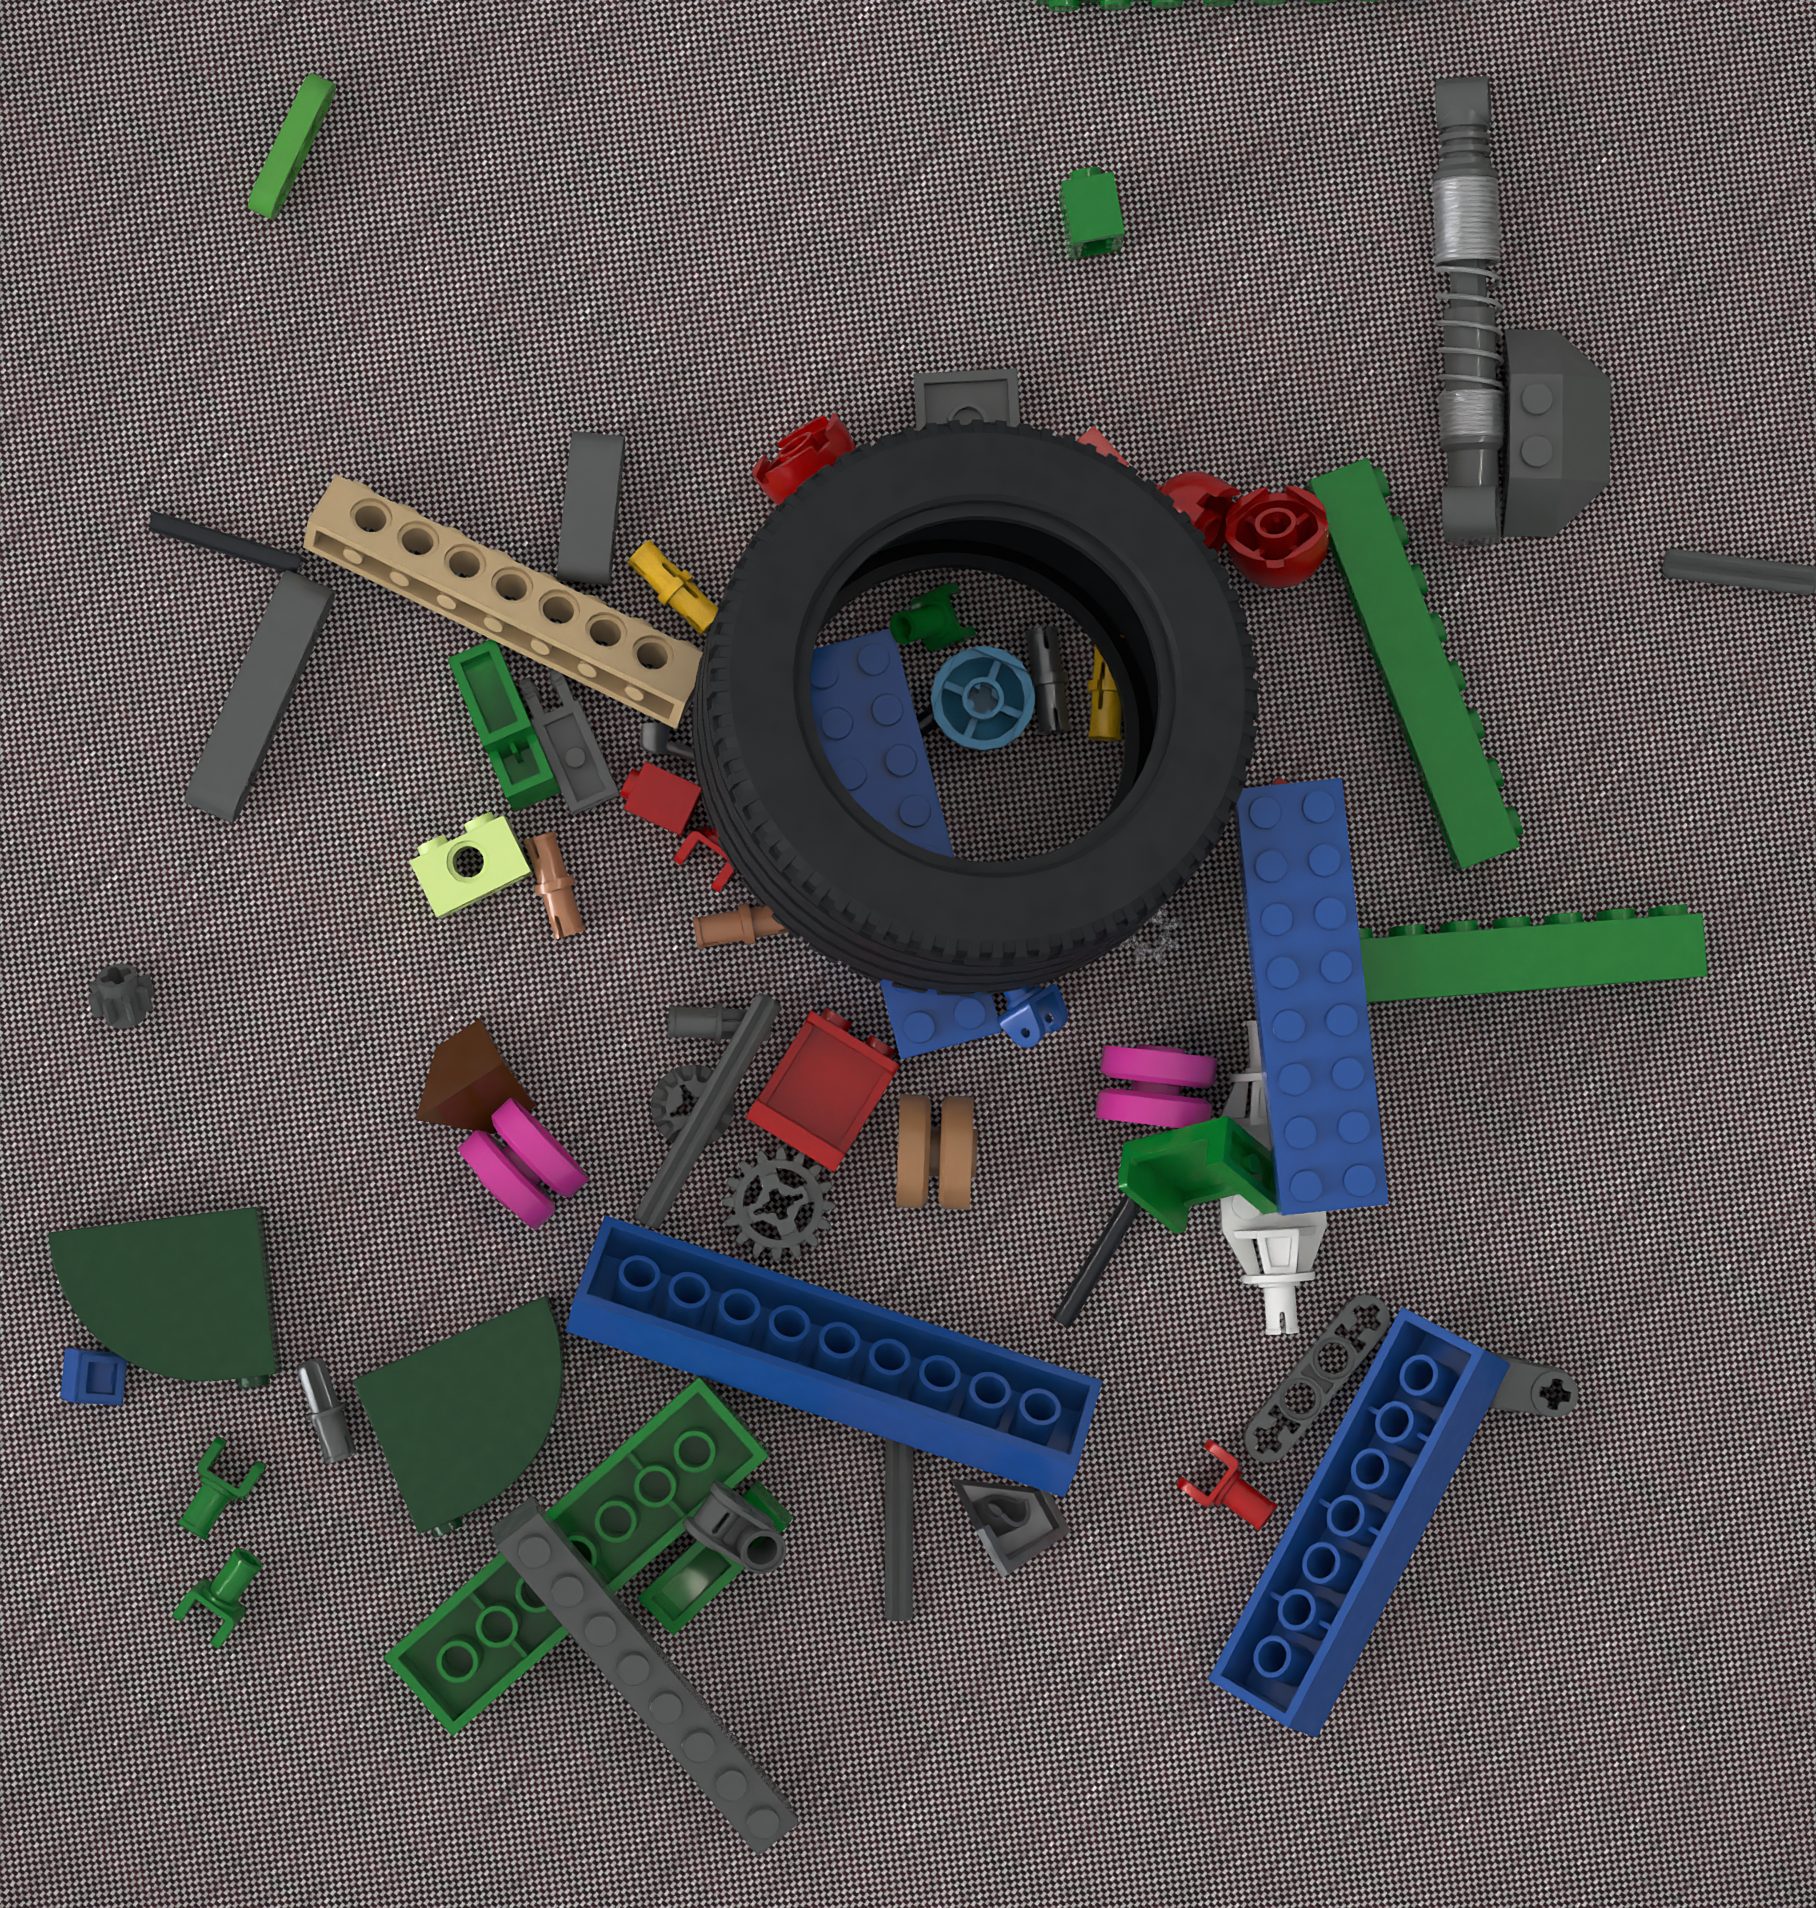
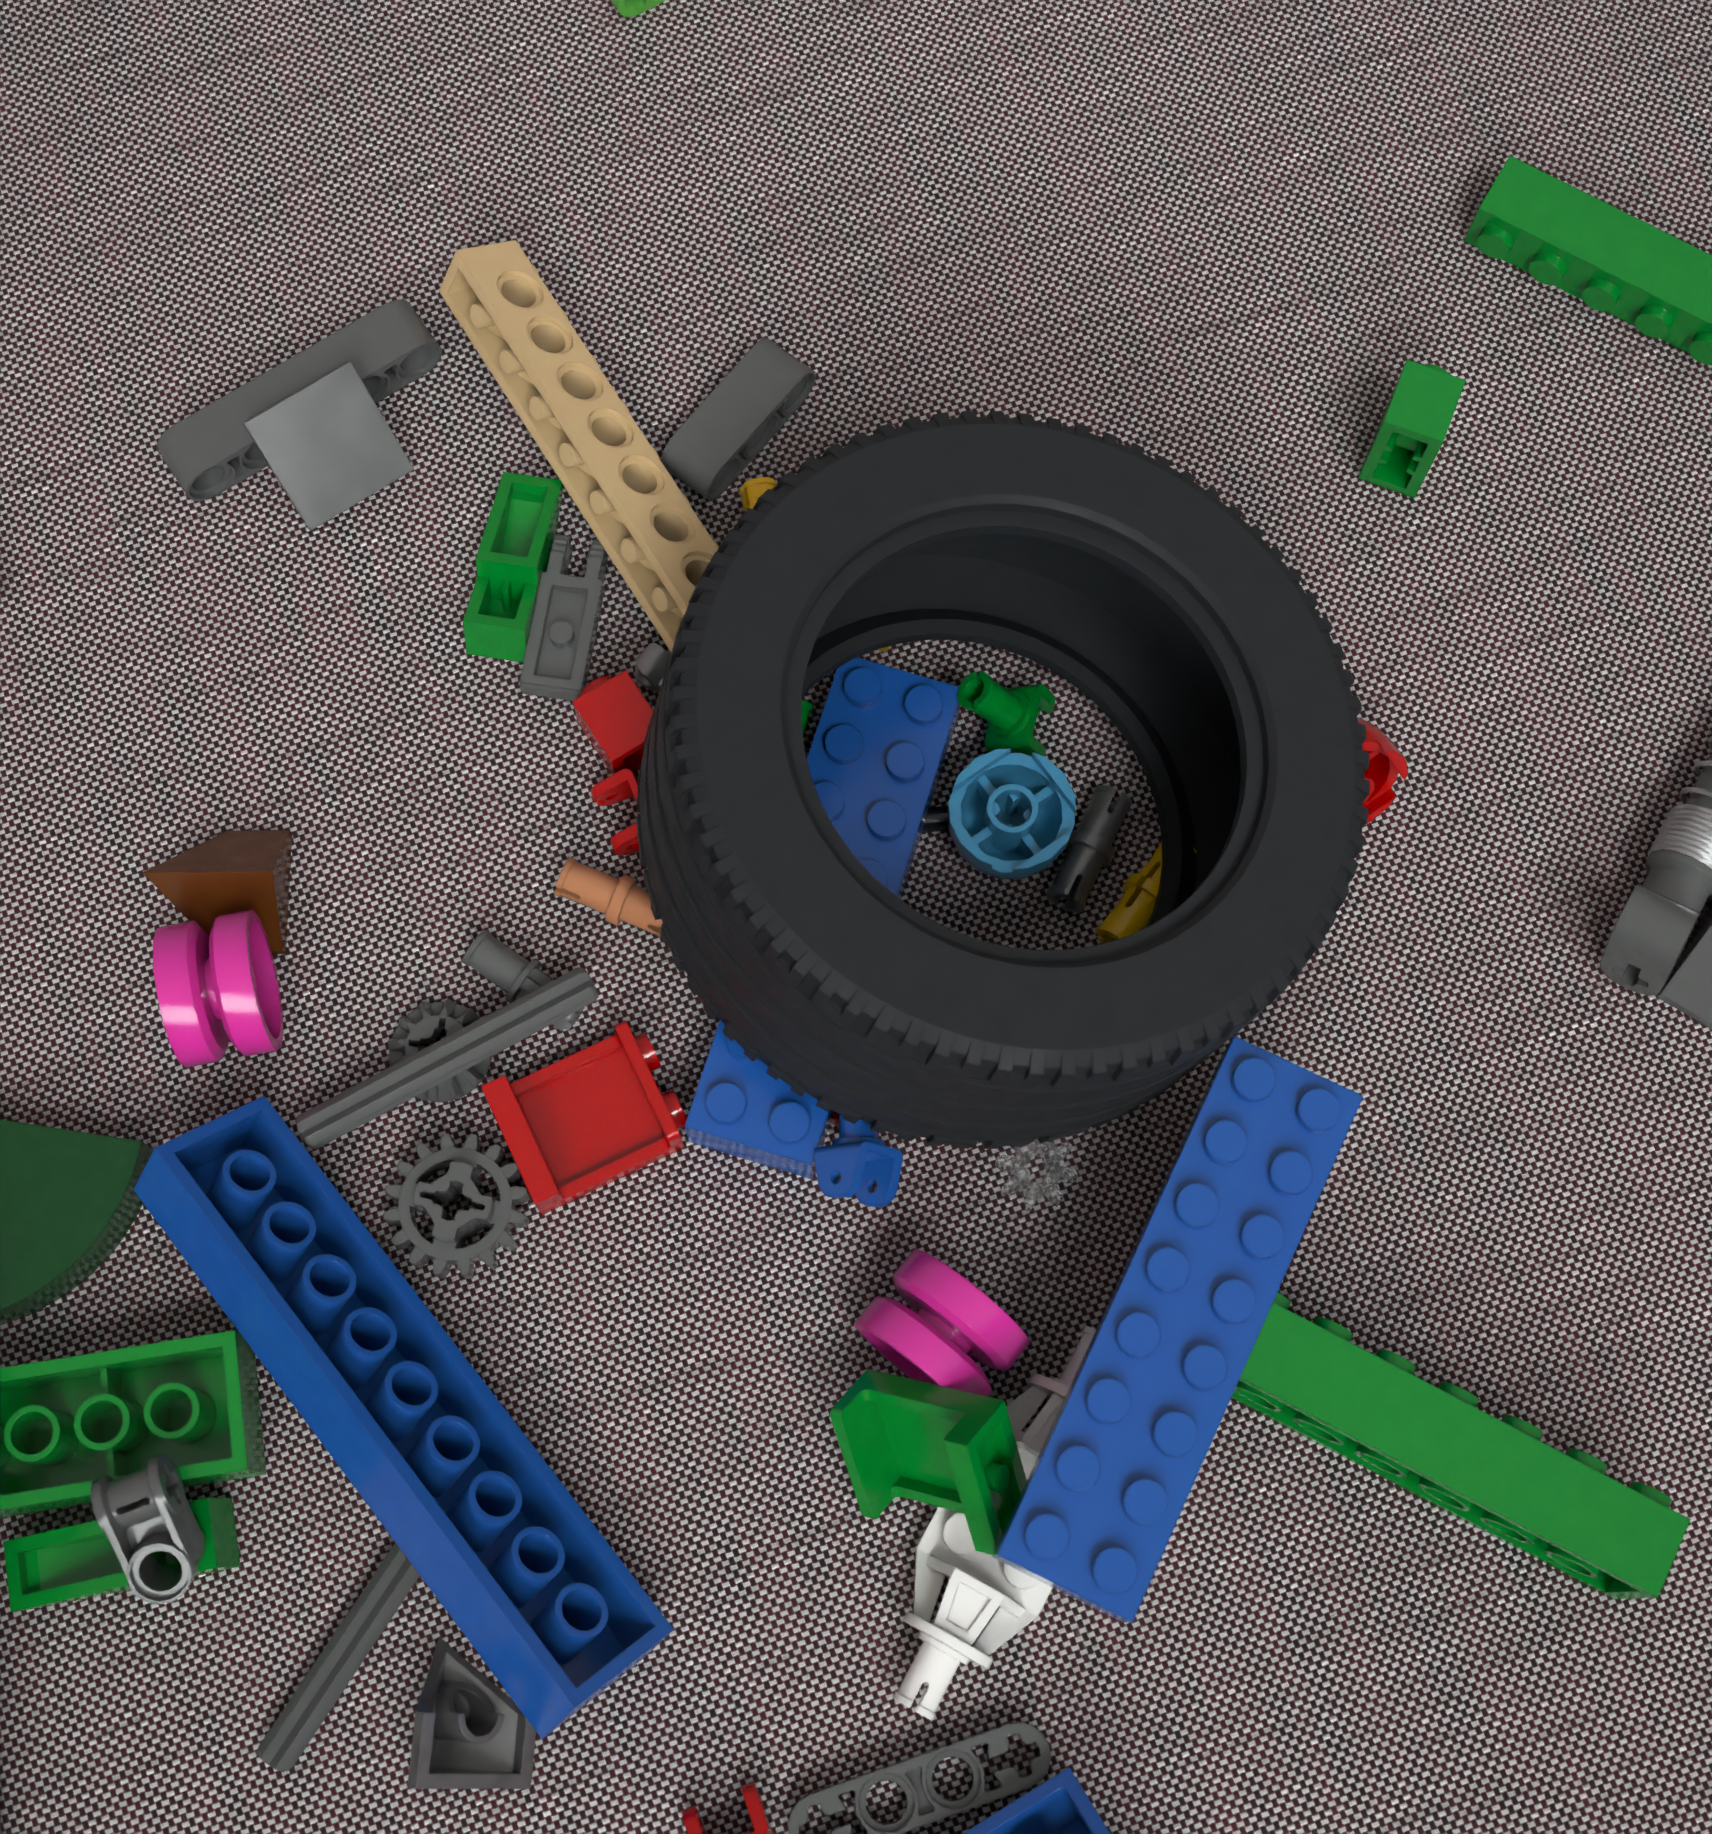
camera: 25 degrees right, 15 degrees down
(225, 543) = (371, 253): black bar -> none
(311, 722) = (328, 445): none -> tile
(503, 864) = (413, 695): yellowish green brick -> none
(554, 885) = (455, 744): nougat pin -> none
(936, 1151) = (655, 1249): medium nougat wheel -> none
(1097, 1261) = (756, 1493): black bar -> none
(1277, 536) = (1421, 846): red cylinder -> none
(1414, 666) = (1490, 1070): green brick -> none

